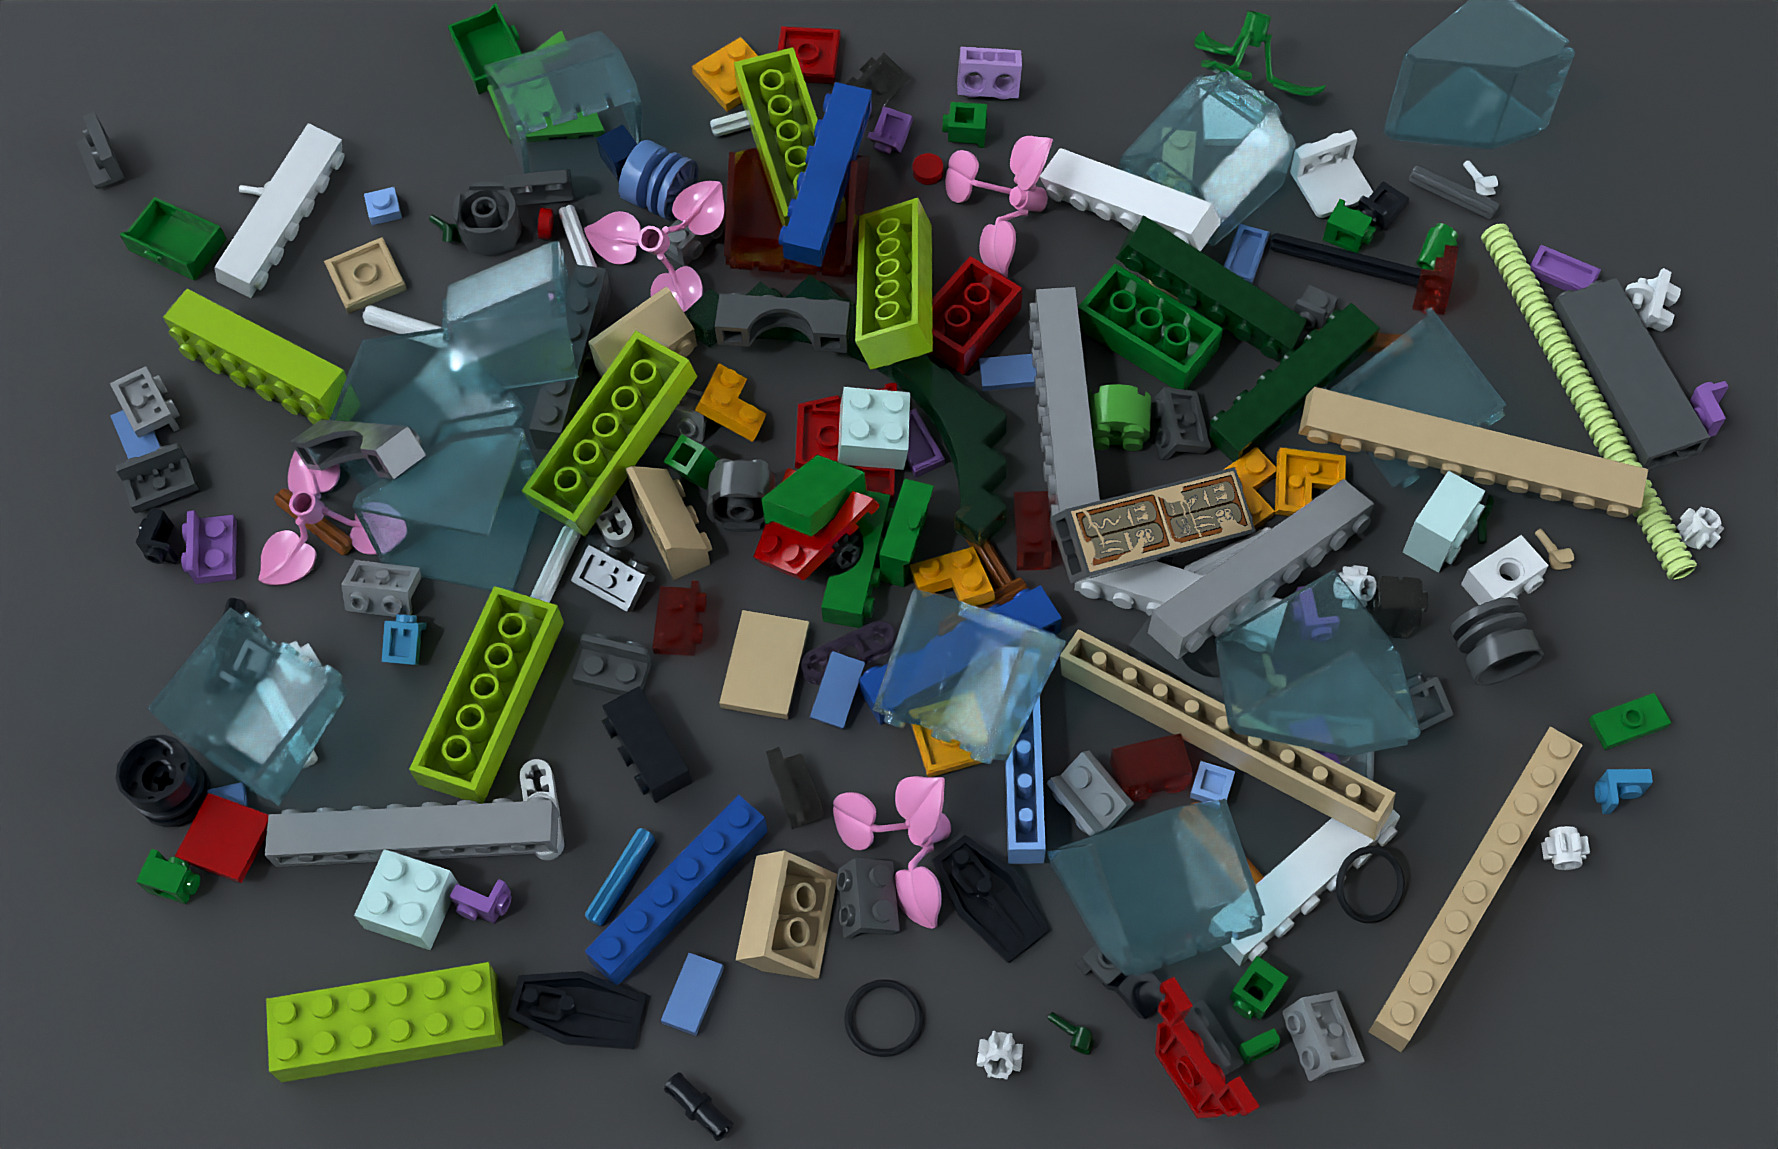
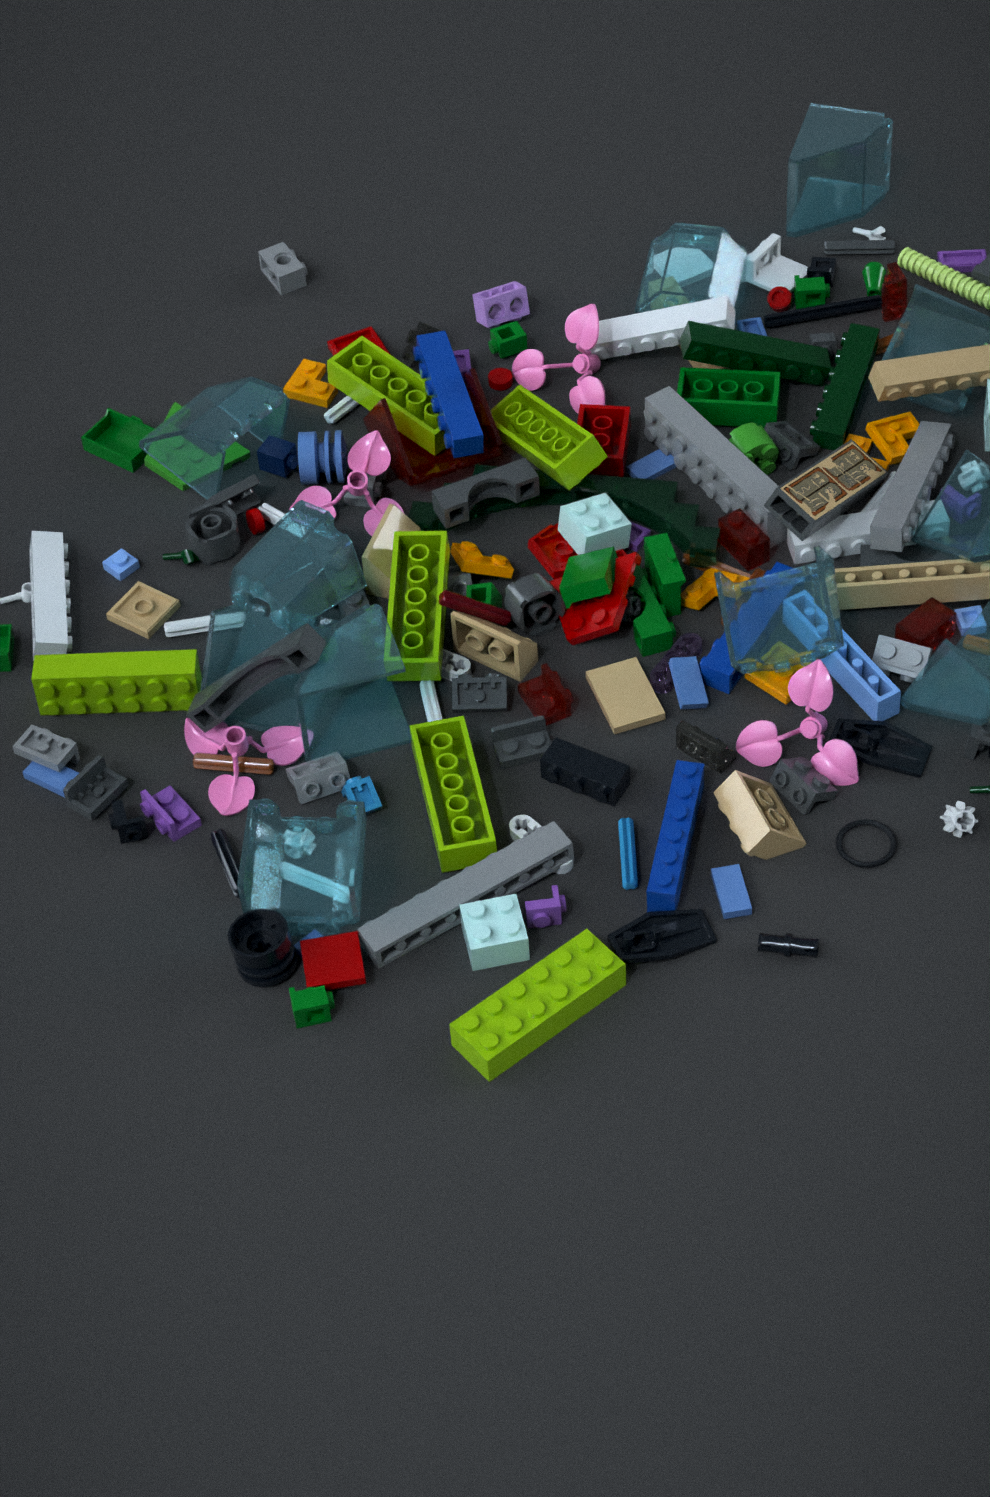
camera: 30 degrees left, 15 degrees down
(664, 470) = (474, 607): none -> dark red axle
(1252, 34) = (668, 202): green plant -> none
(1308, 219) = (779, 299): none -> red tile

